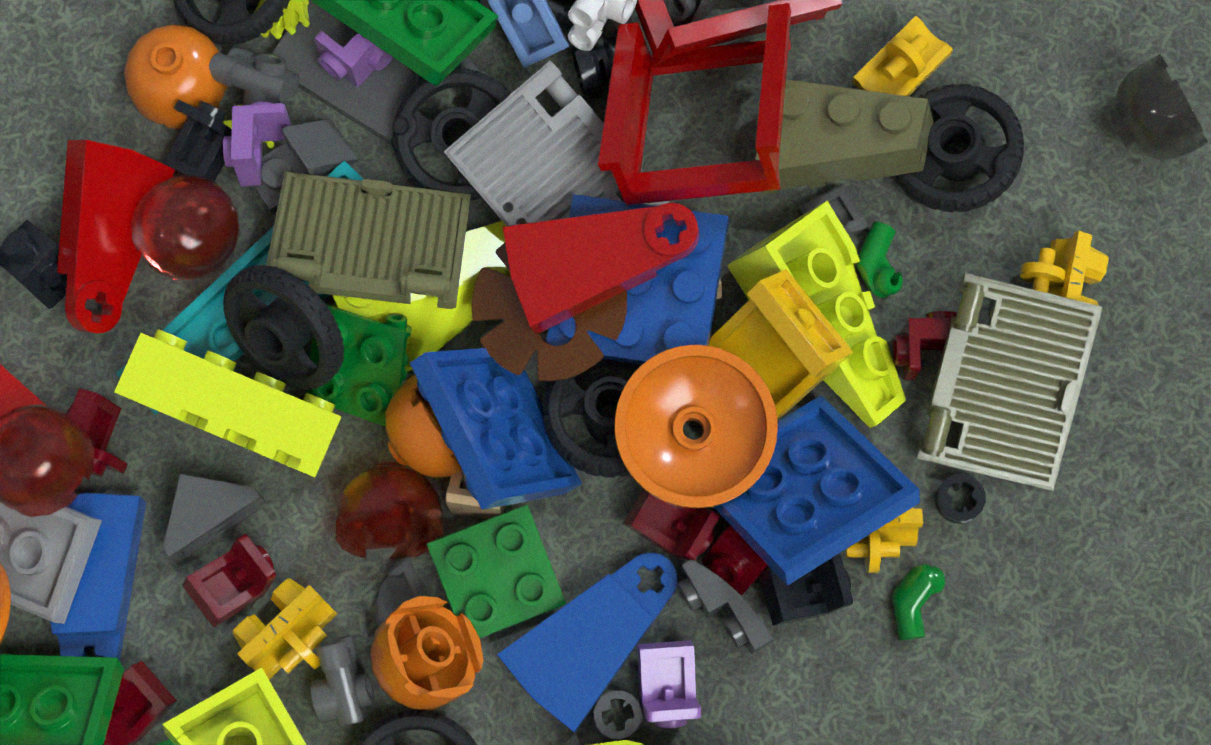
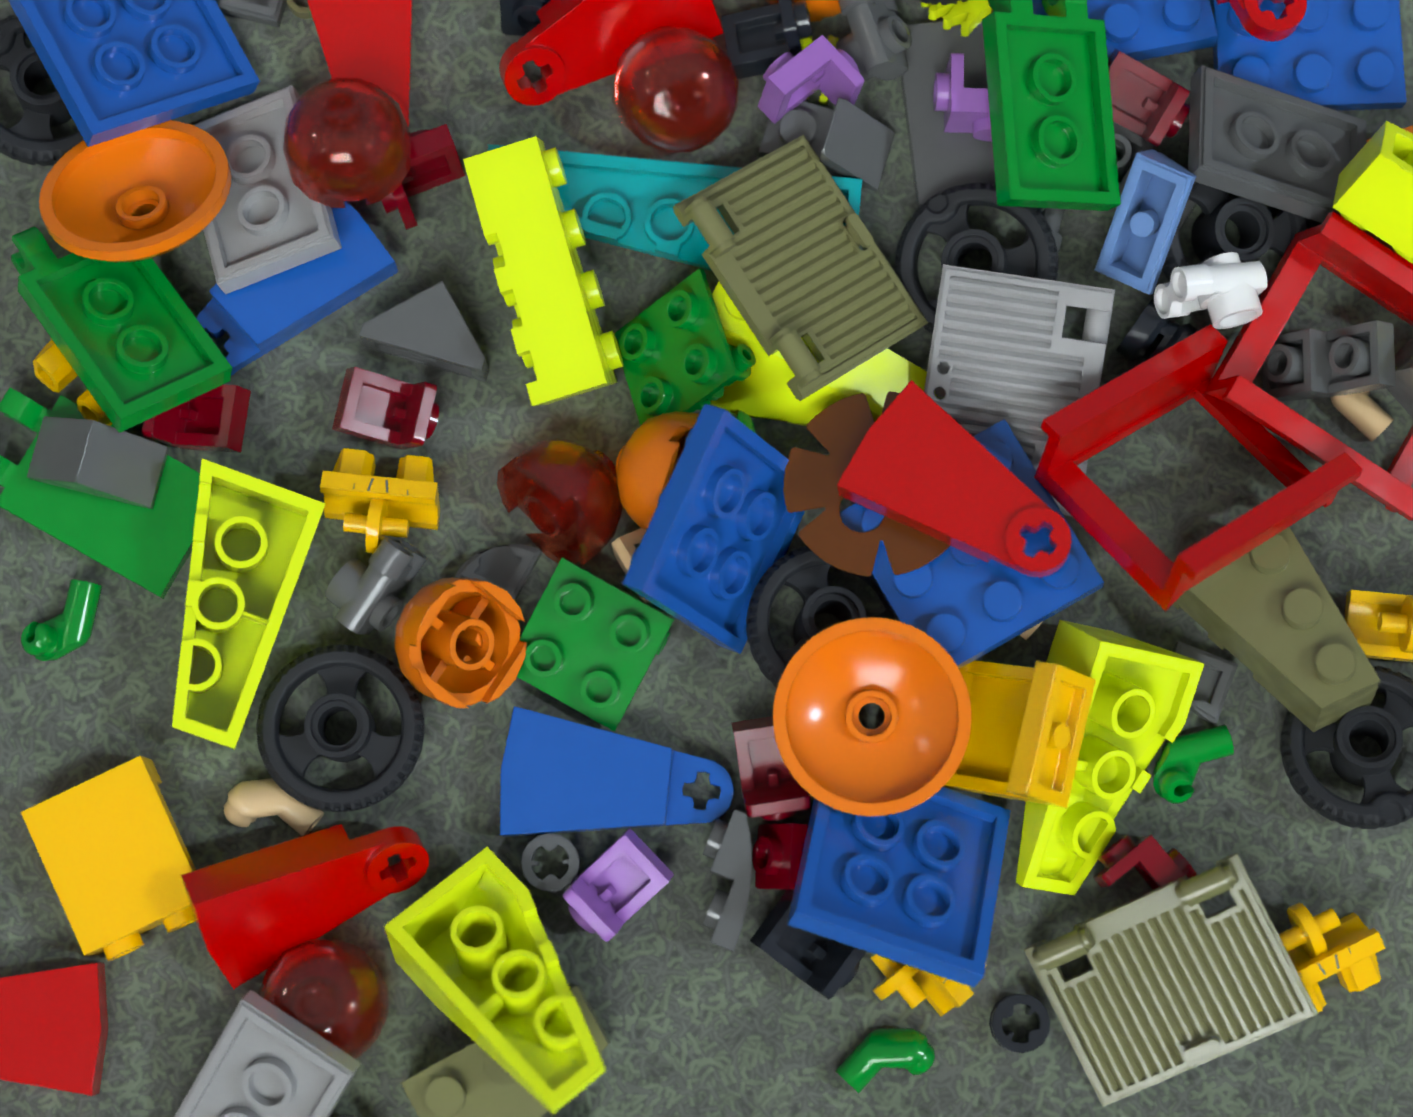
camera: 50 degrees right, 5 degrees up
(276, 332) = (646, 259): black wheel -> none

